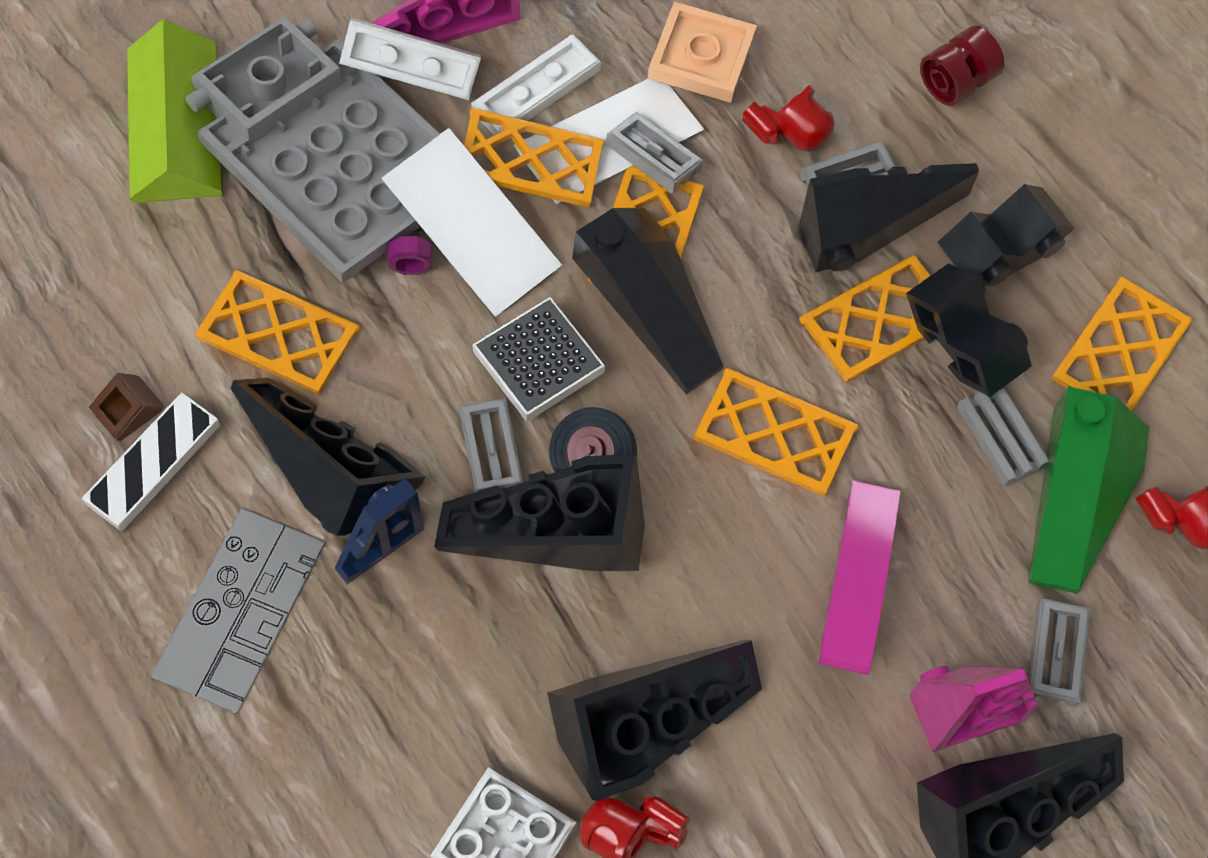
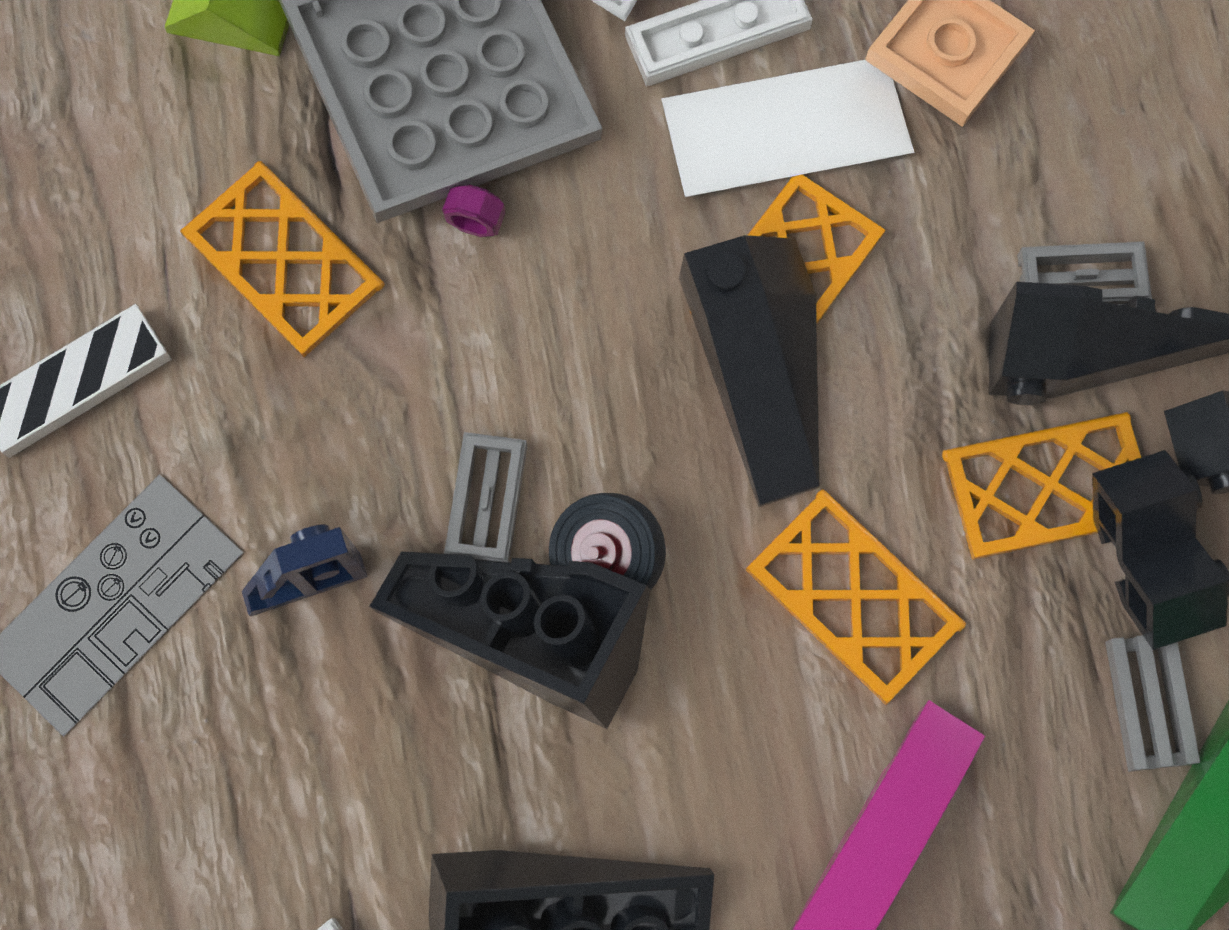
camera: 25 degrees right, 10 degrees up
(125, 405) = (69, 296): reddish brown slope -> none
(320, 457) = (271, 446): black wedge -> none
(471, 222) = (565, 190): white sticker -> none
(538, 359) = (585, 402): tile -> none
(548, 186) = (681, 172): light orange window -> none
(649, 155) = (827, 169): light grey tile -> none
(800, 122) = (1043, 184): red piece -> none

